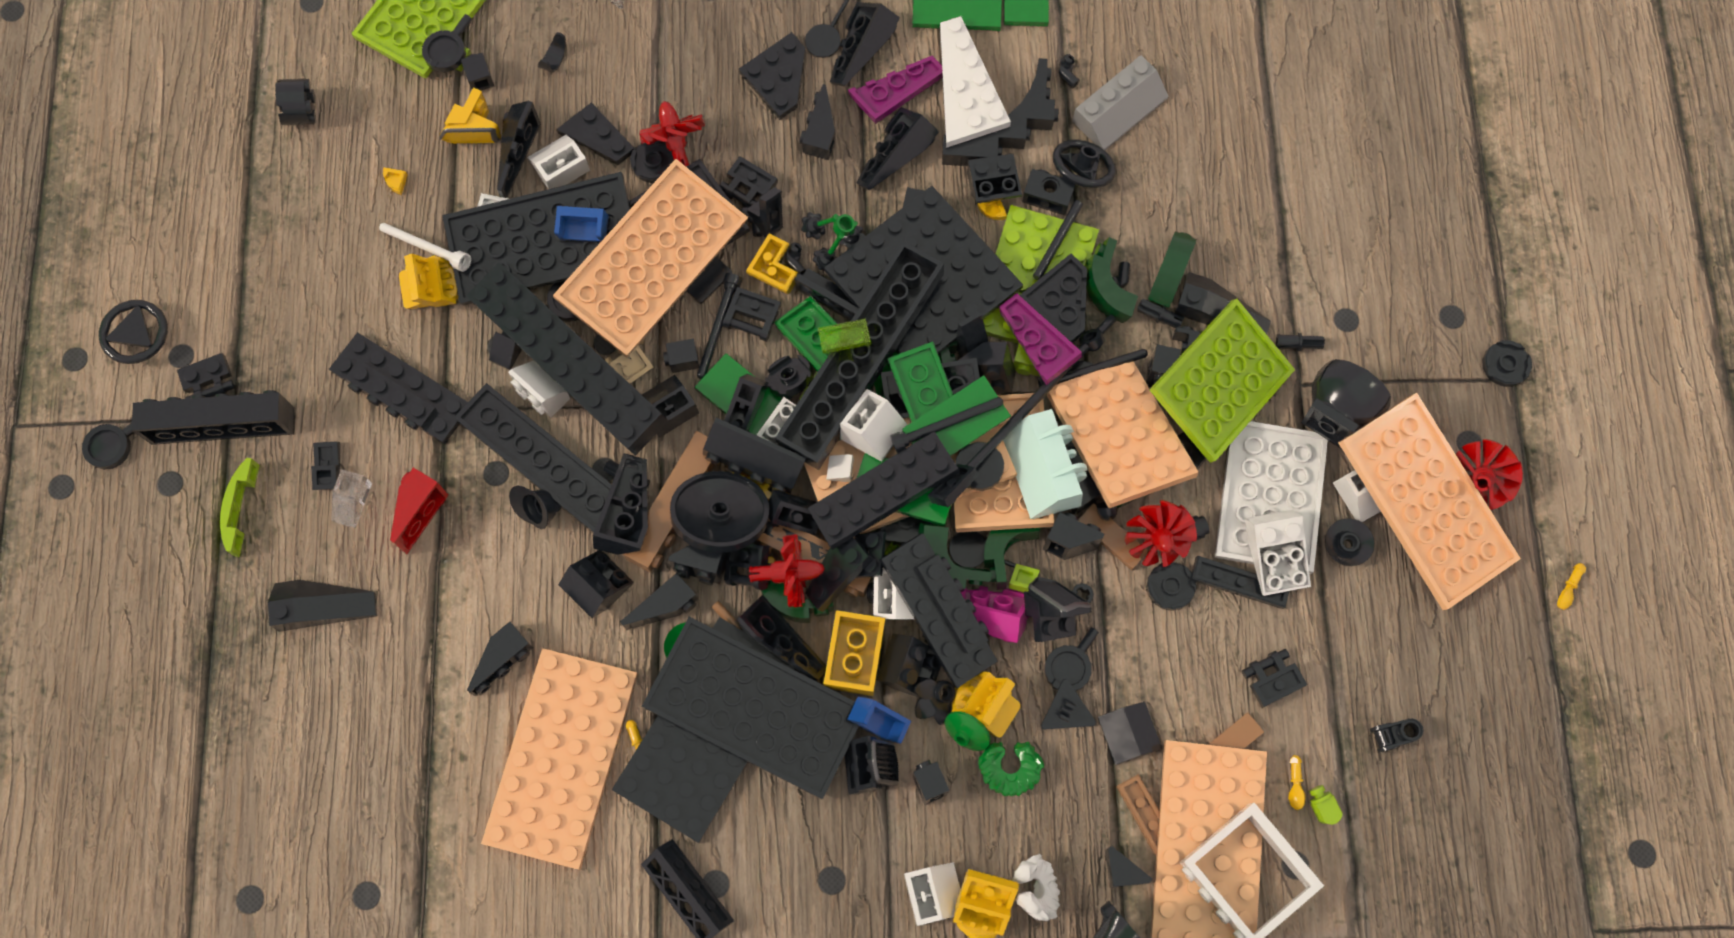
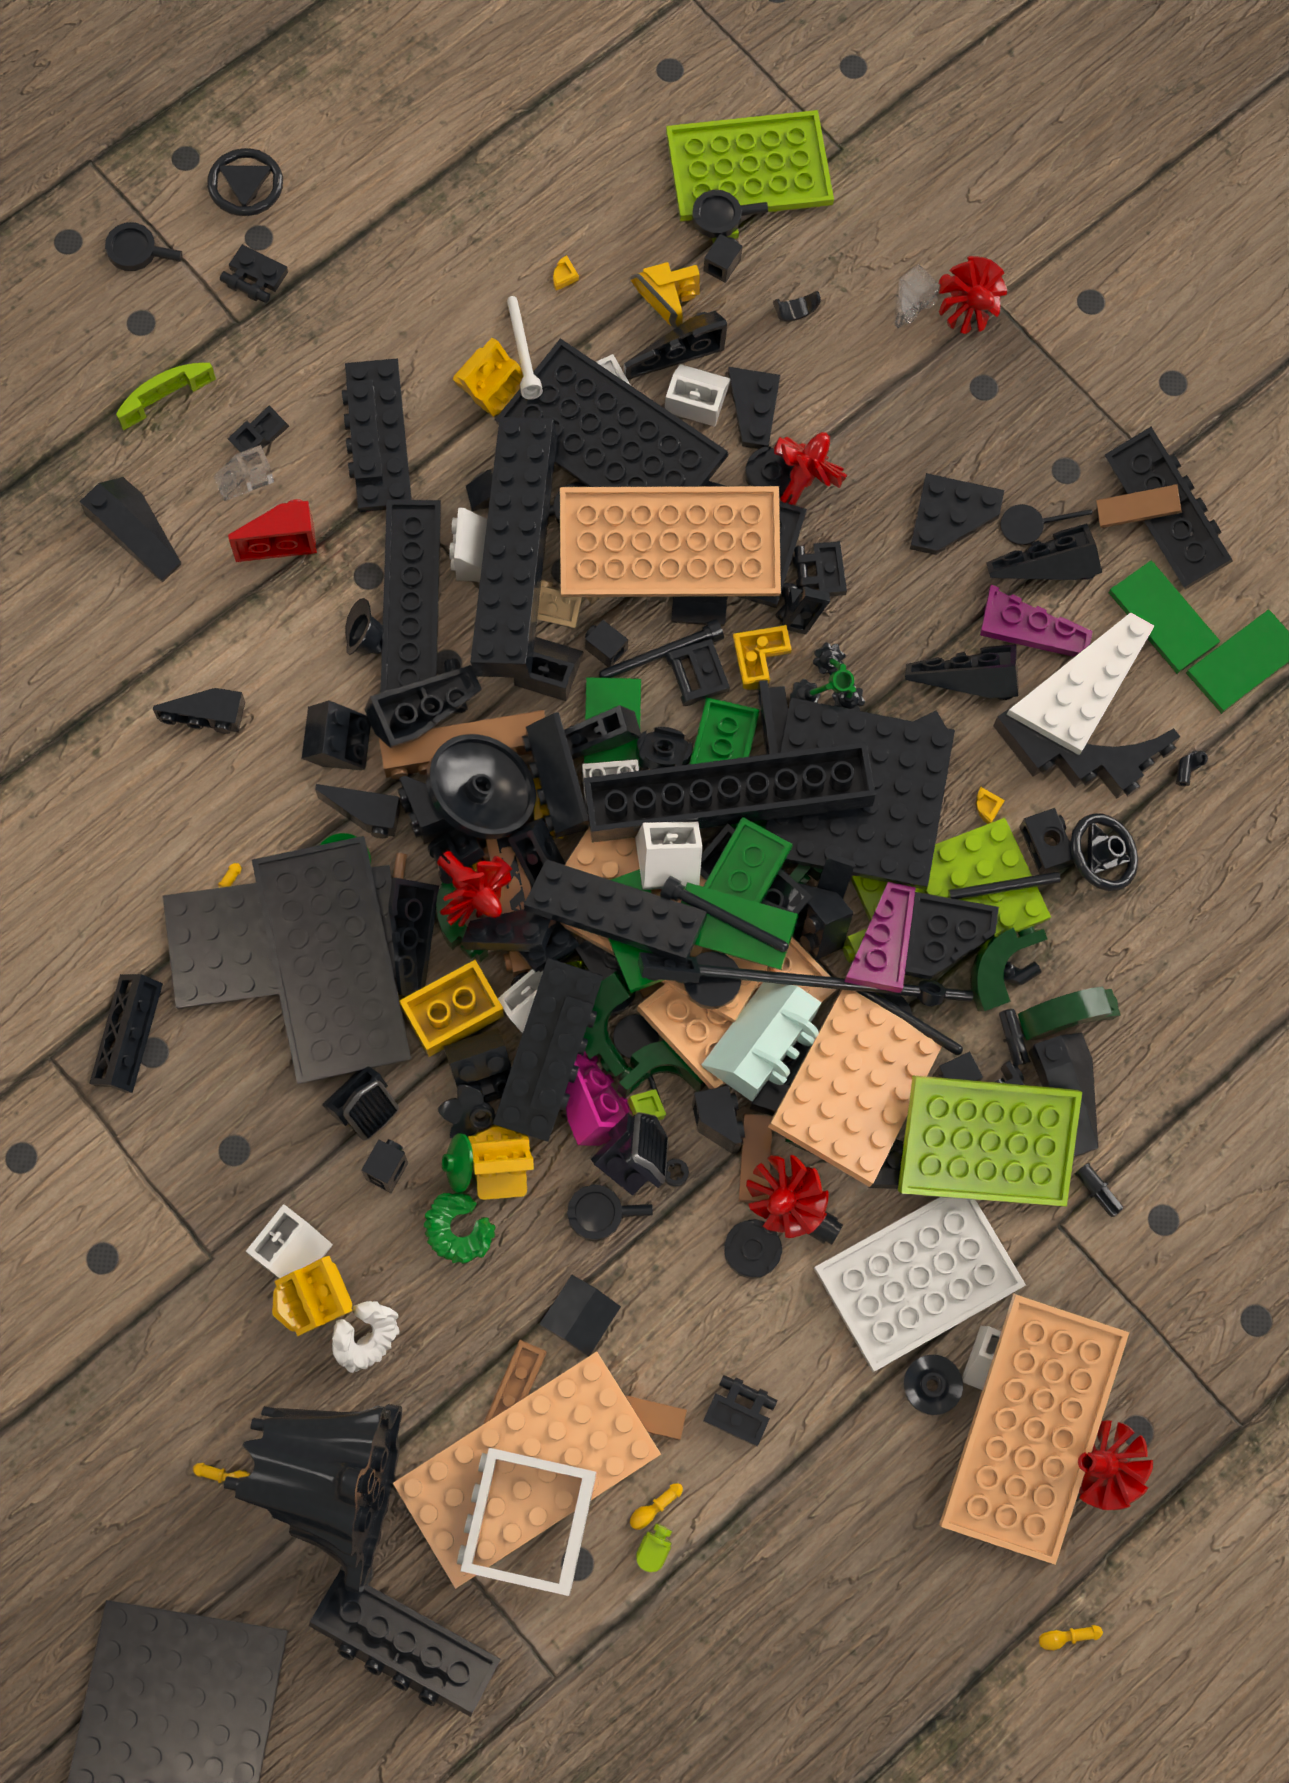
camera: 45 degrees right, 0 degrees up
(213, 417) = (222, 307): black brick -> none
(295, 101) = (561, 134): black brick -> none
(560, 759) = (159, 833): light nougat plate -> none
(581, 224) = (648, 457): blue panel -> none
(793, 257) = (783, 666): black arm -> none
(820, 133) = (927, 592): black slope -> none
(840, 468) = (609, 859): white slope -> none
(844, 336) = (727, 761): clear neon green plate -> none
(879, 720) = (406, 1076): blue panel -> none
(993, 178) = (1014, 781): black slope -> none
(1067, 710) = (555, 1241): black piece -> none
(1106, 513) = (771, 1134): black hinge -> none
(1120, 103) = (1198, 840): light grey slope -> none
(1123, 871) = (442, 1403): black slope -> none
(1234, 581) = (808, 1310): black tile -> none
(1279, 551) = (864, 1322): white slope -> none
(1344, 400) = (1064, 1270): black plate -> none
(1392, 735) = (775, 1565): black piece -> none
(1507, 363) = (1252, 1409): black tile -> none

